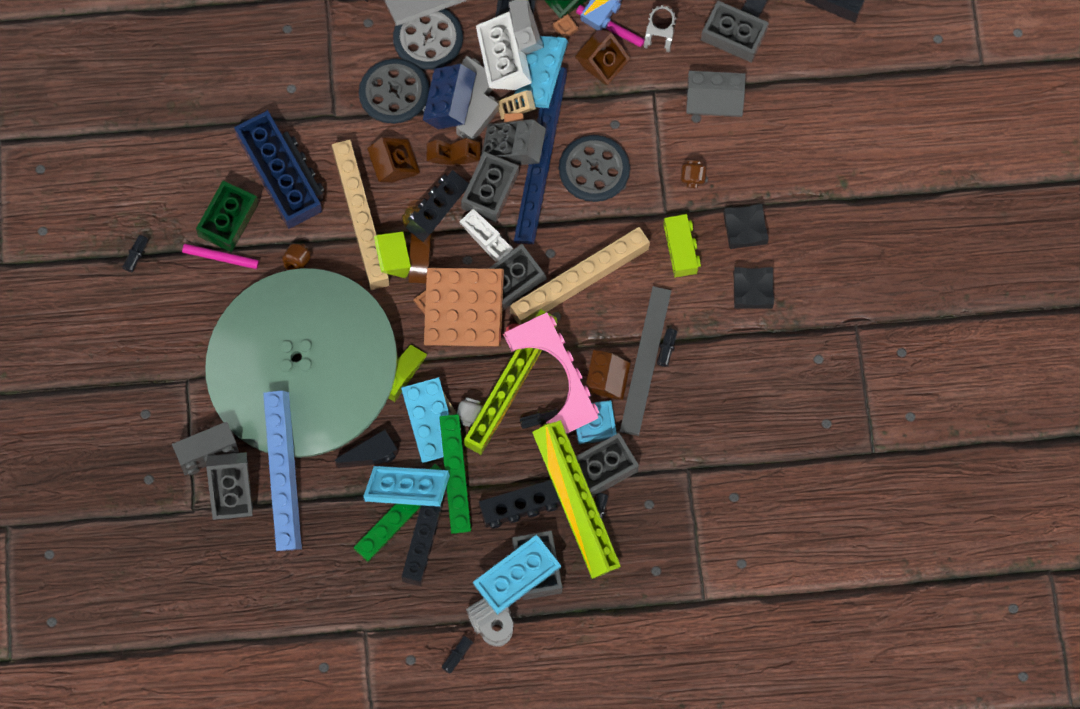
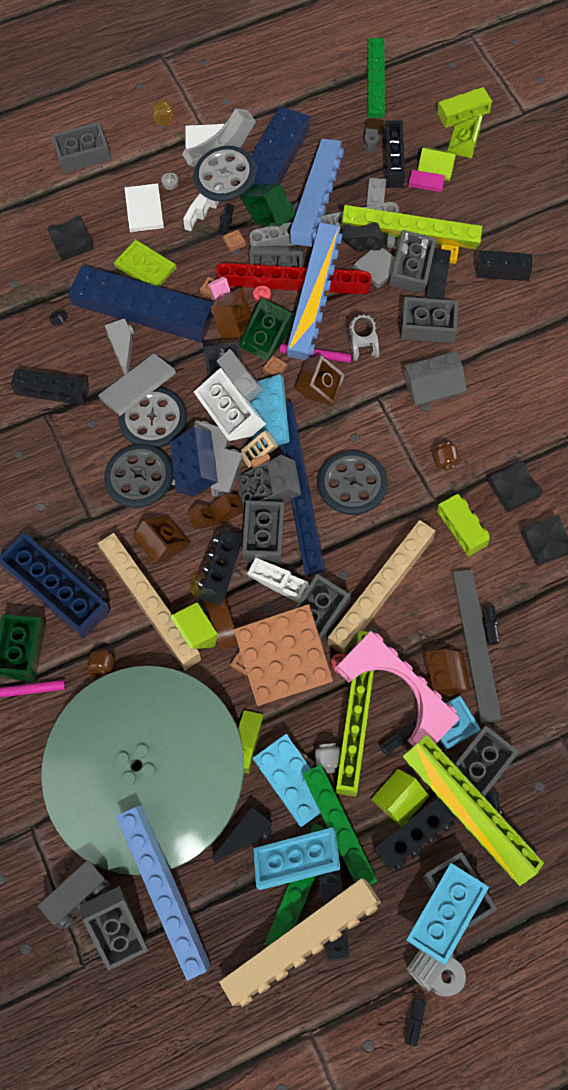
camera: 15 degrees left, 5 degrees down
(383, 553) = (299, 943): none -> tan brick
(520, 469) = (400, 797): none -> lime slope

